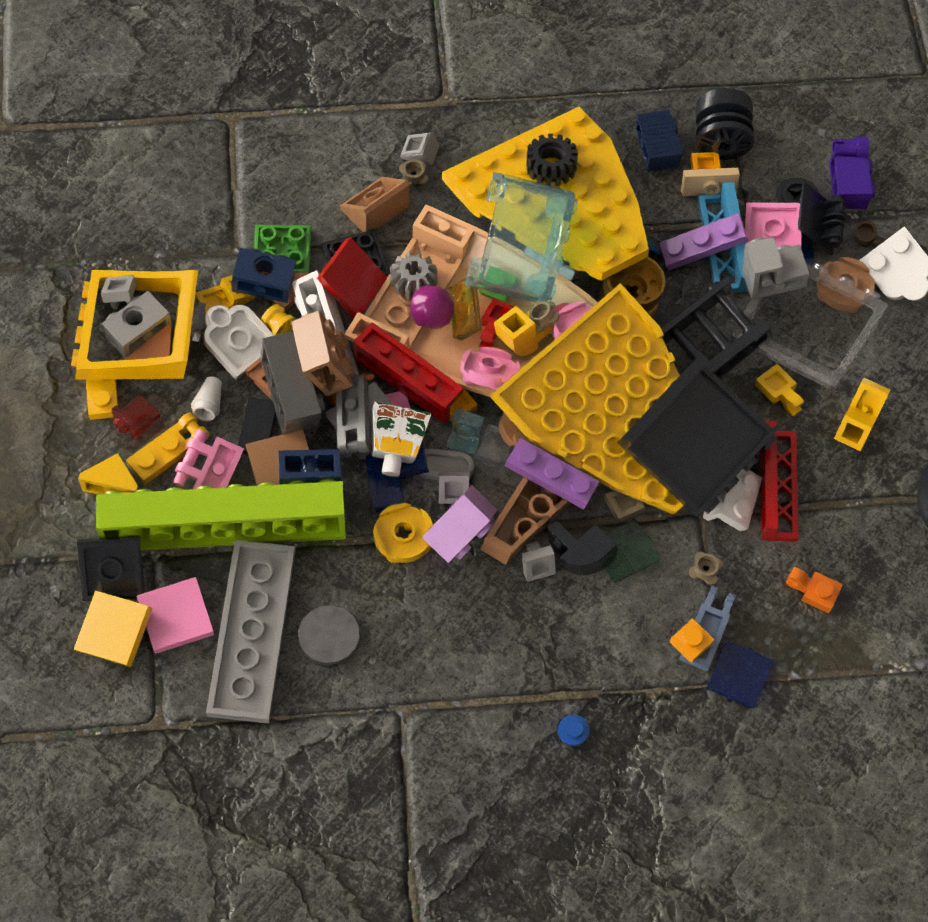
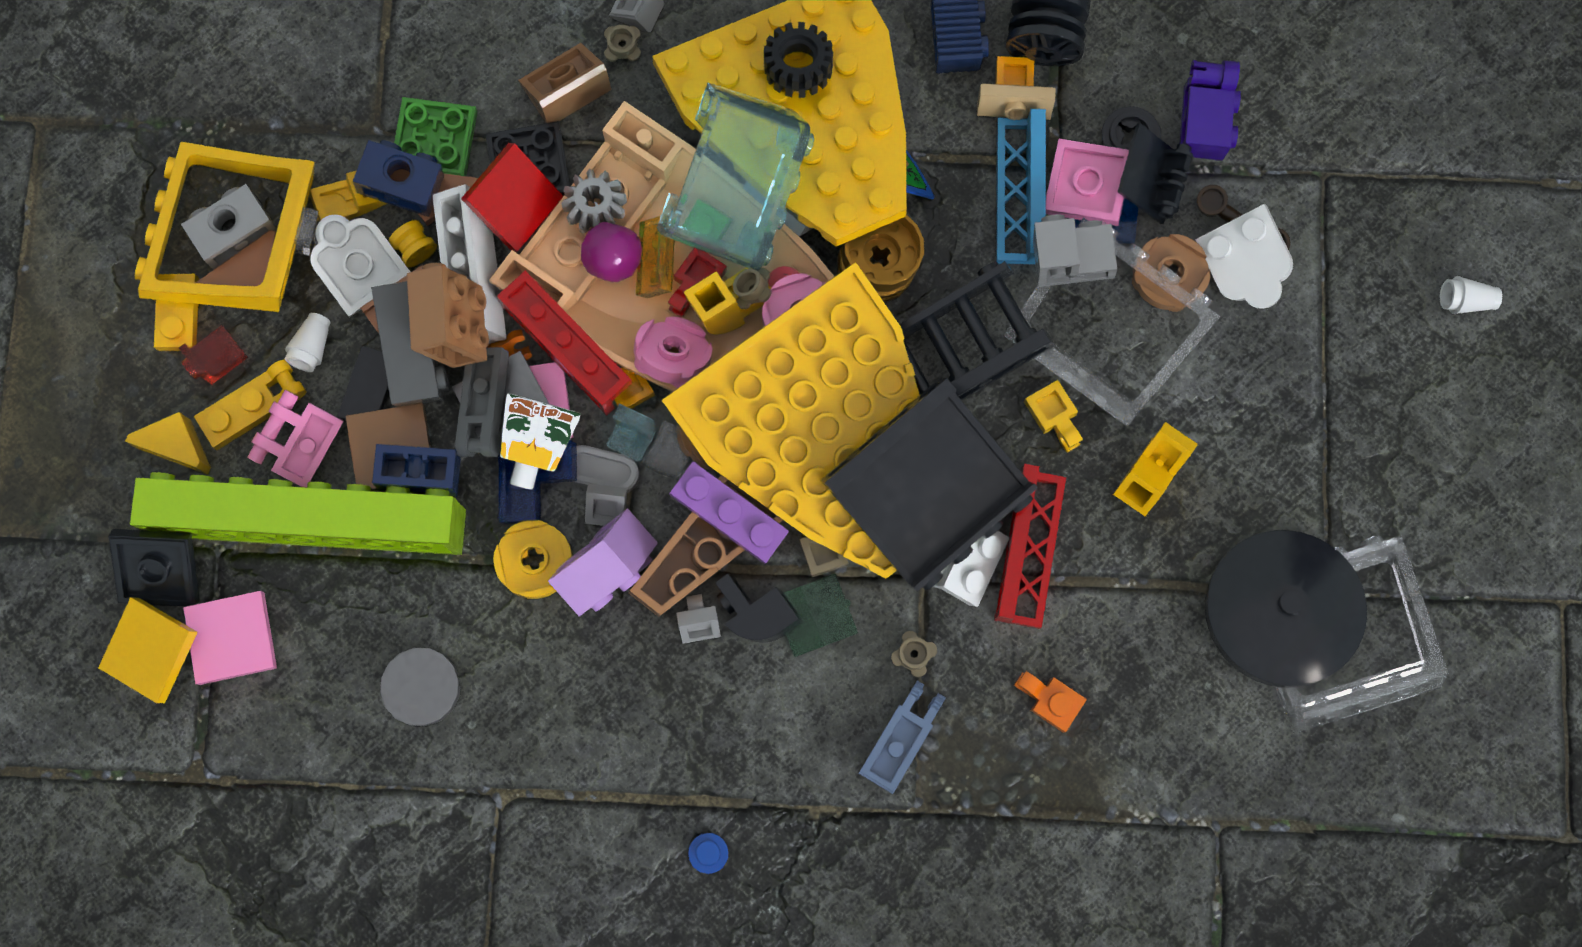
camera: 10 degrees right, 15 degrees up
(118, 290) = (210, 175): light grey tile -> none
(251, 632) = (322, 670): light grey plate -> none
(692, 640) = (876, 757): light orange plate -> none
(703, 241) = (990, 192): medium lavender plate -> none
(740, 674) = (933, 802): clear blue piece -> none

